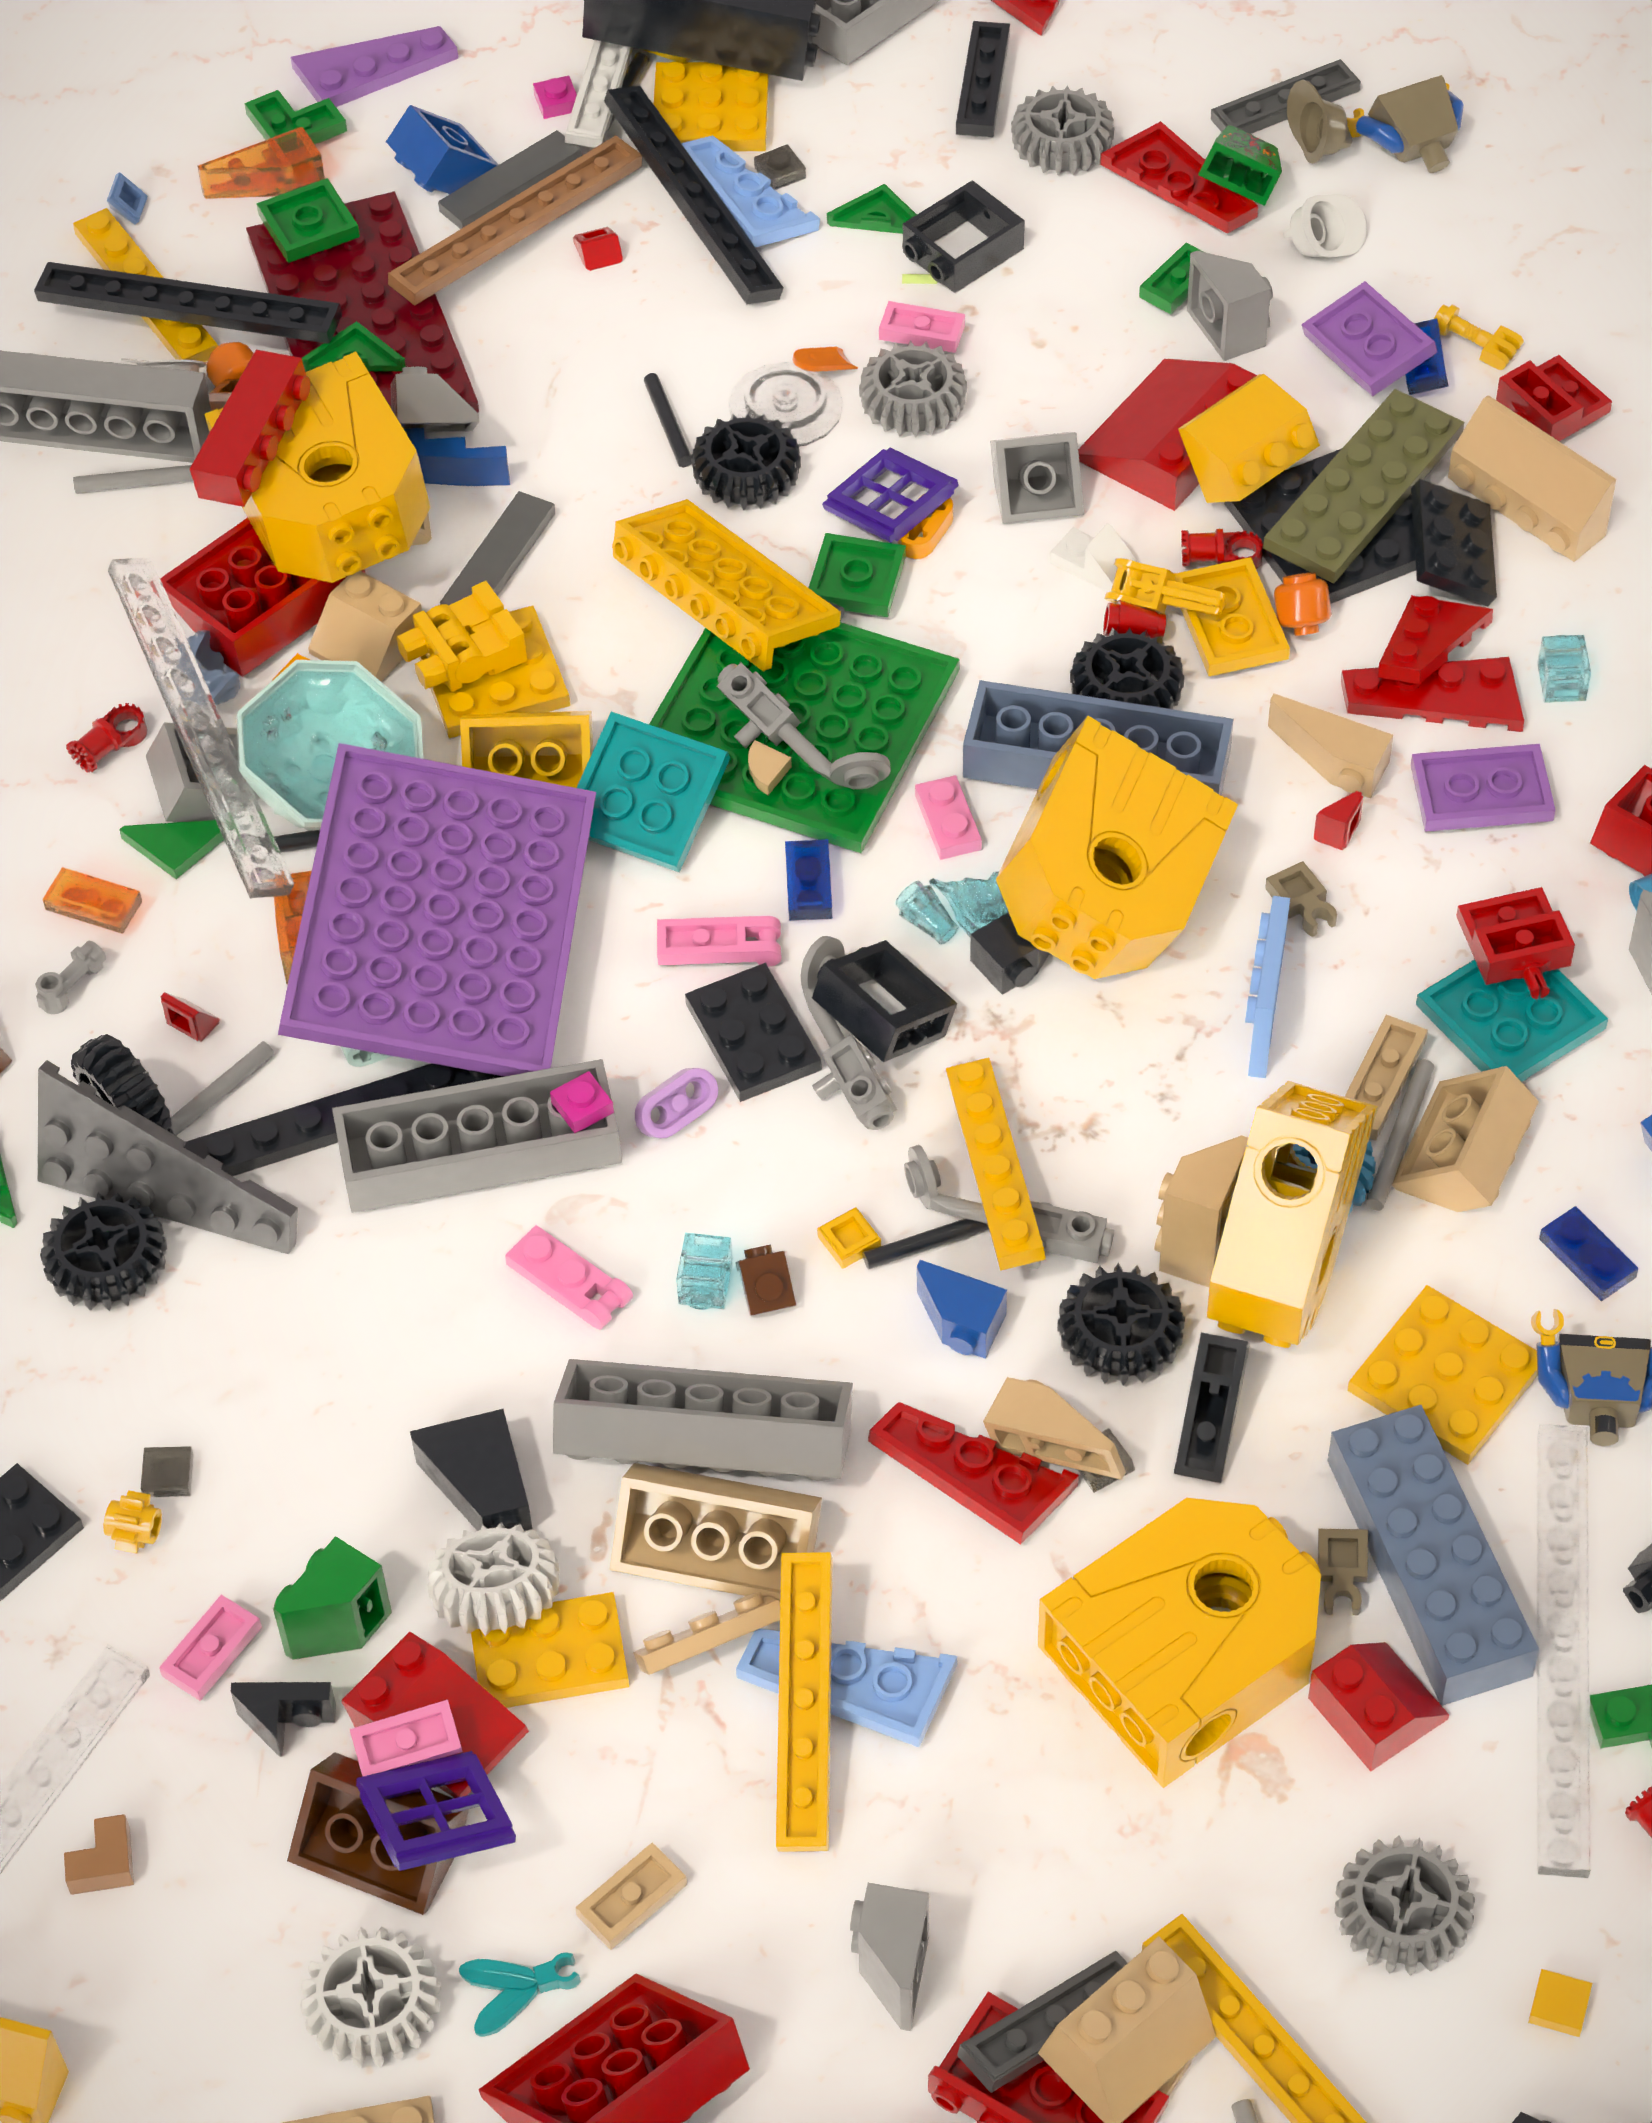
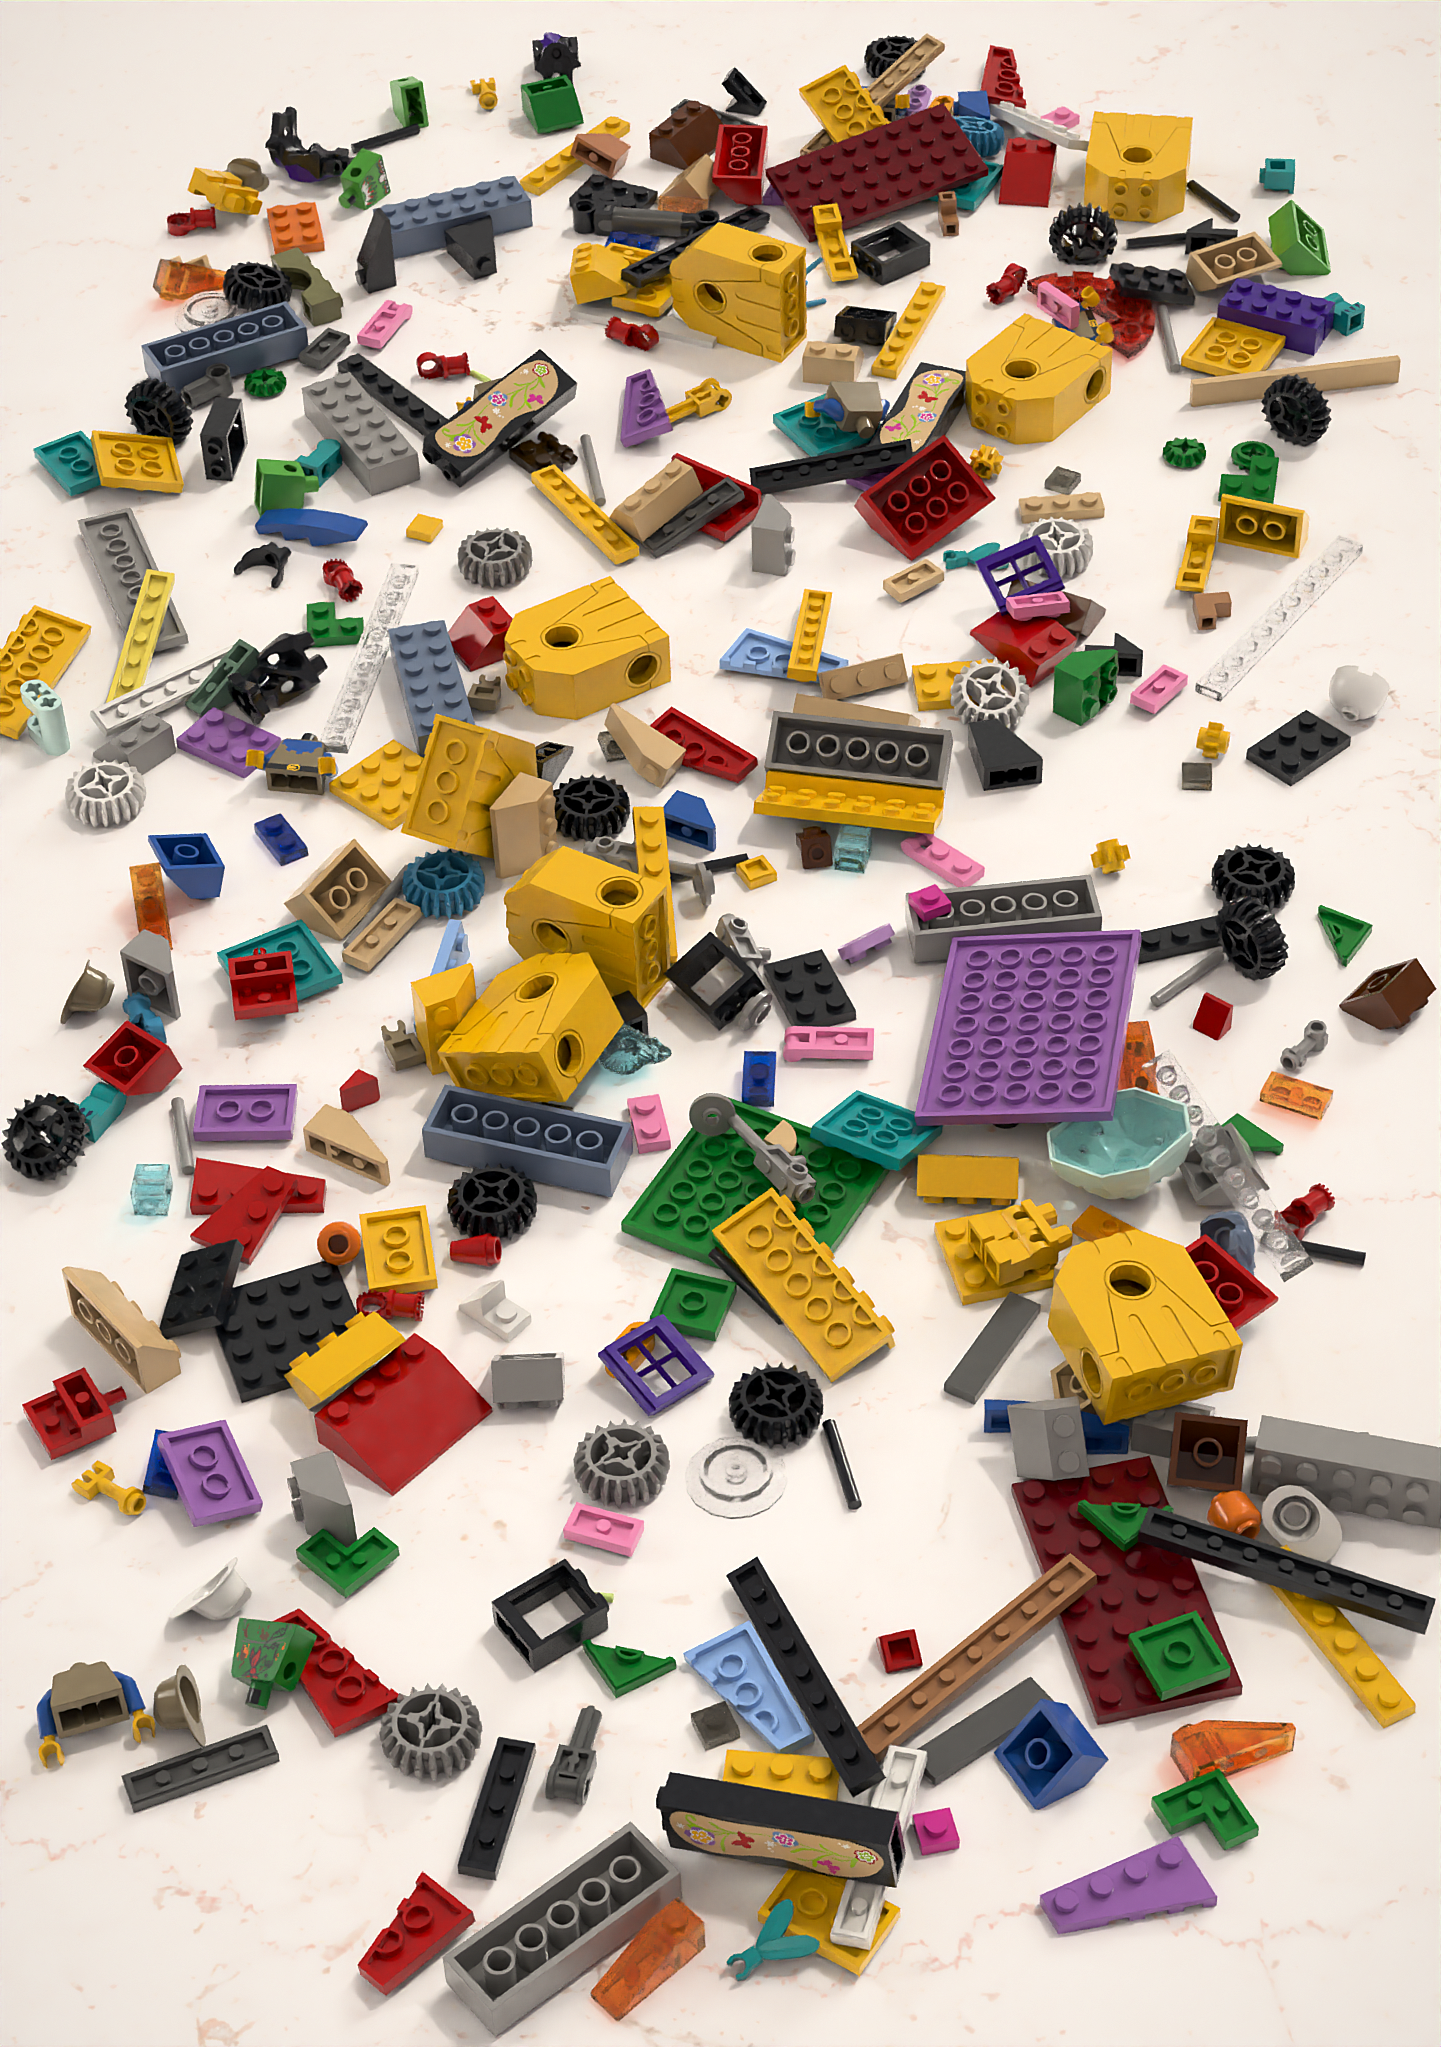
camera: 175 degrees left, 10 degrees down
(97, 701) = (1334, 1253): none -> black bar
(112, 1150) = (1209, 896): flat silver wing -> none
(115, 1979) = (1198, 554): none -> yellow slope
(126, 198) = (1367, 1728): medium blue slope -> none
(250, 428) = (1197, 1298): red brick -> none
(322, 1281) = (1110, 856): none -> yellow gear
(715, 1324) = (851, 802): none -> yellow bracket
(822, 359) = (698, 1503): orange piece -> none
(913, 118) = (575, 1764): none -> dark grey connector
(925, 911) = (683, 1053): clear light blue cone -> none
(1068, 1002) = (597, 908): none -> yellow piece
(1155, 589) = (453, 1259): yellow connector -> none
(1244, 872) = (439, 1007): none -> yellow slope
(1363, 485) = (257, 1335): olive plate -> none
(1556, 762) = (182, 1136): none -> light grey bar

